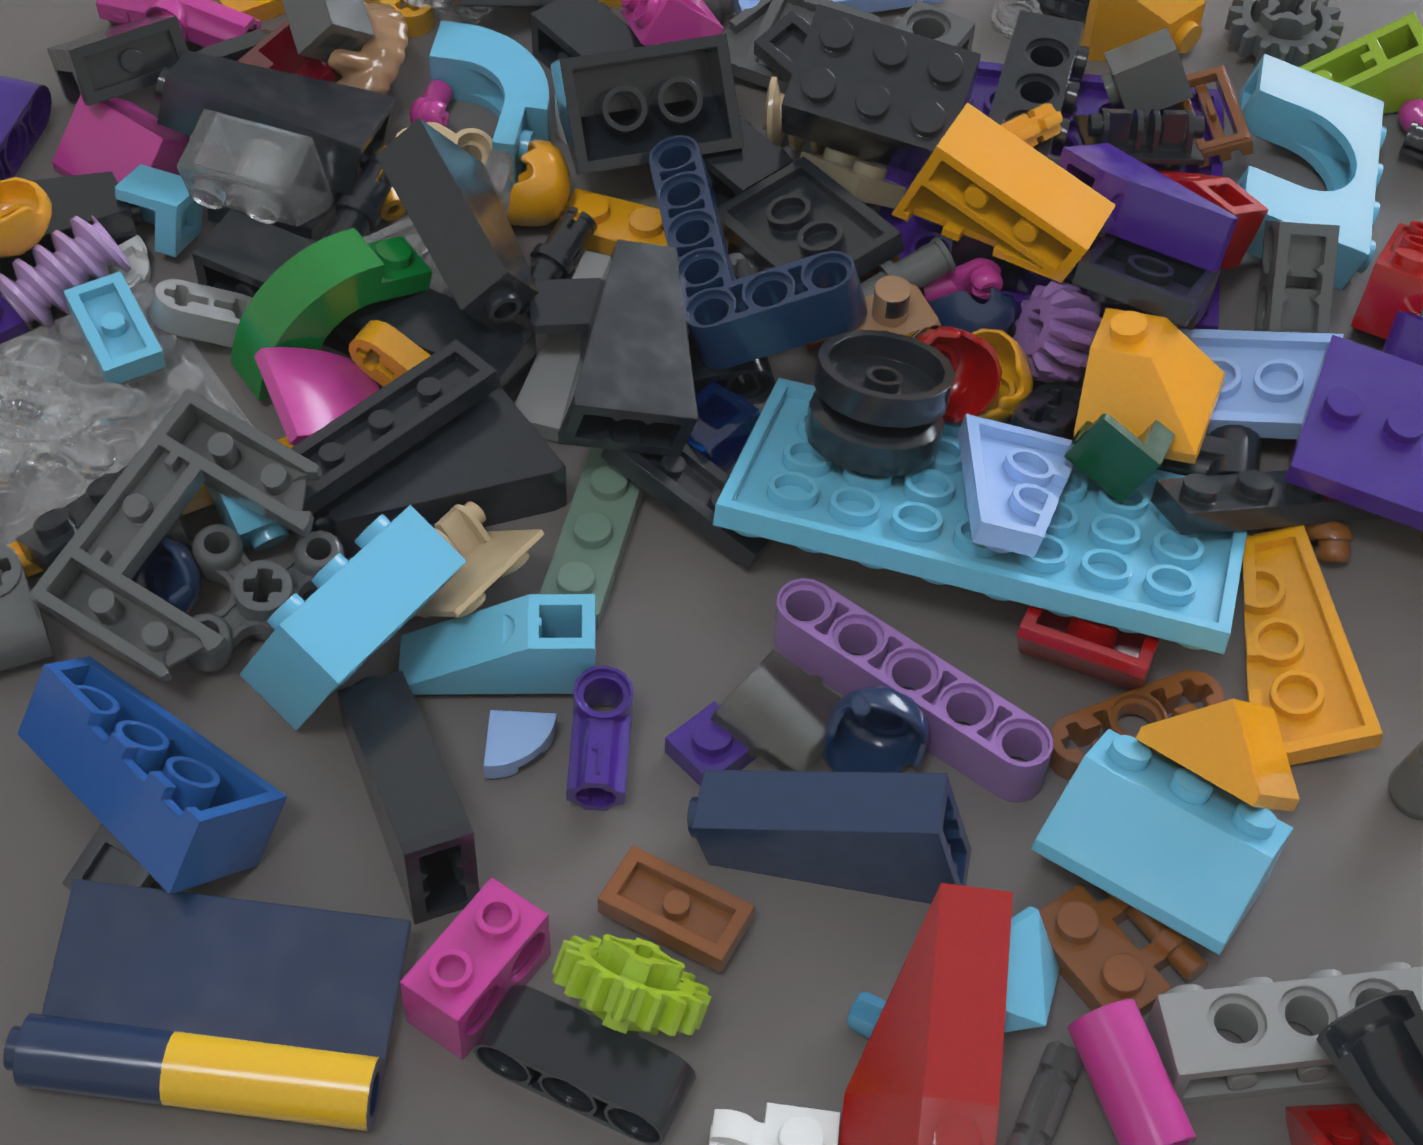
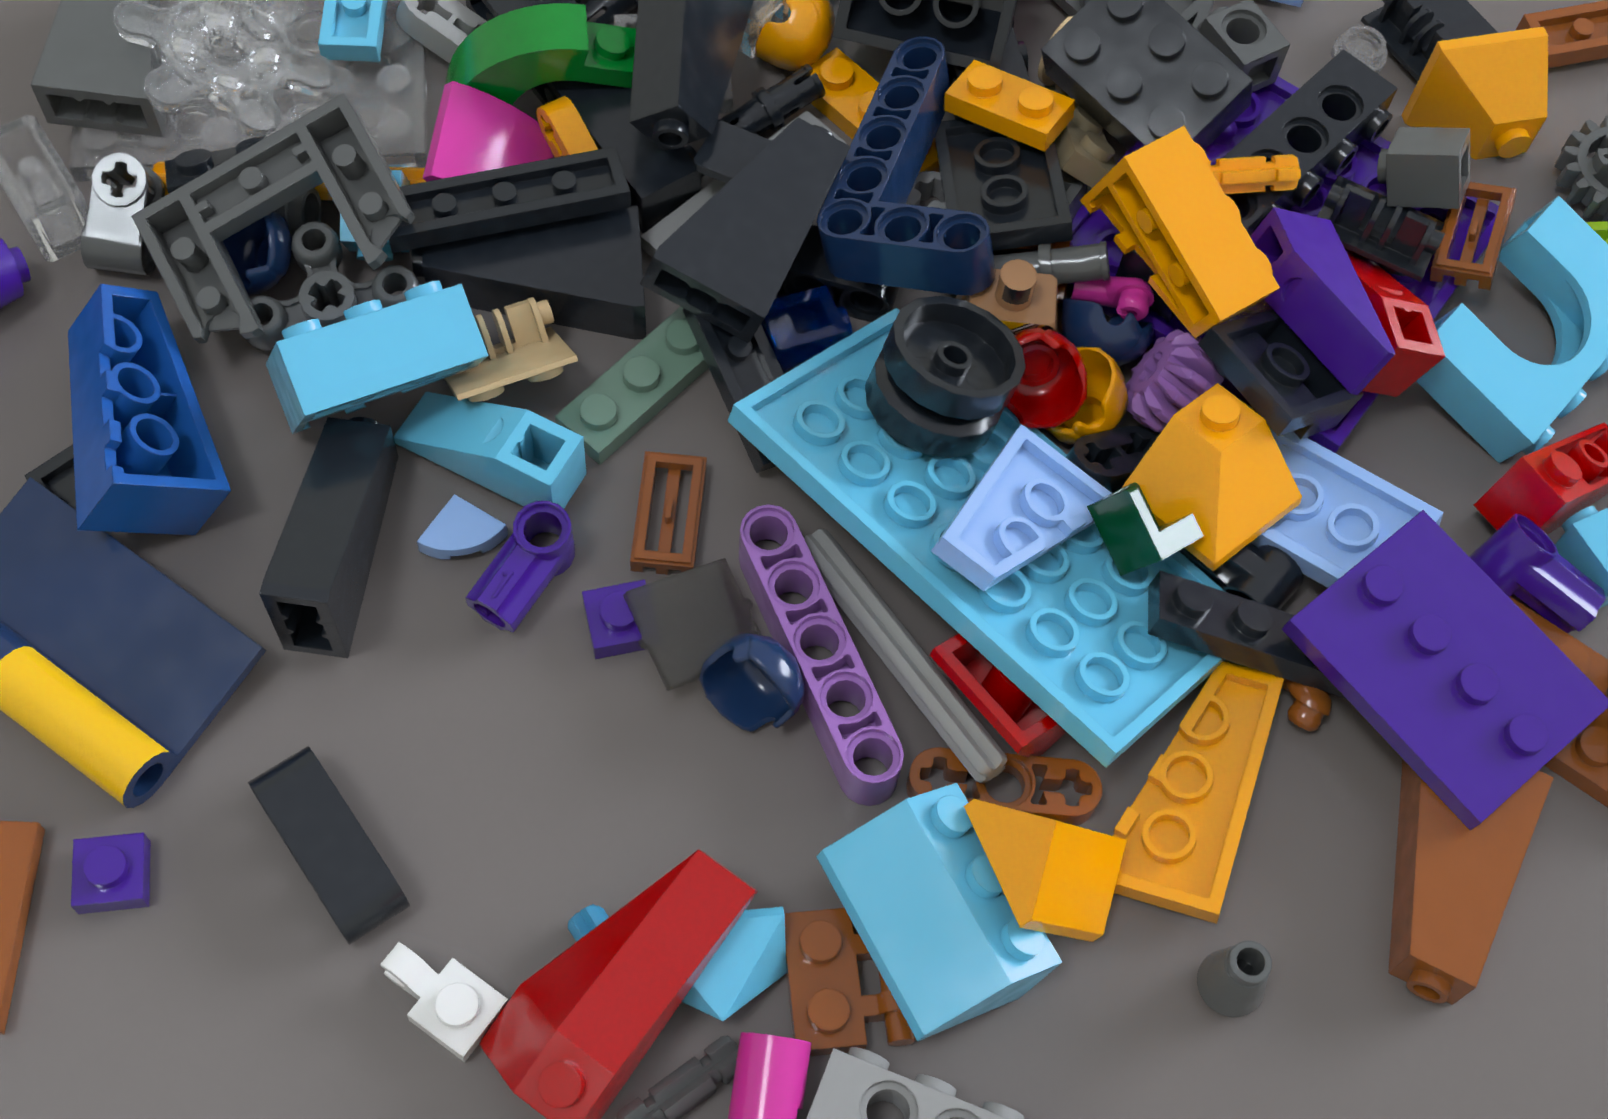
camera: 25 degrees right, 10 degrees up
(472, 964) = (289, 710): dark pink brick -> none
(631, 985) = (395, 799): lime gear -> none
(676, 909) = (491, 748): dark orange plate -> none
(710, 678) = (663, 558): none -> dark orange tile
(775, 165) = (1009, 105): none -> light orange plate
(835, 829) = (666, 753): dark blue slope -> none
(1003, 661) = (906, 660): none -> light grey axle
(1297, 277) = (1438, 435): dark grey brick -> none

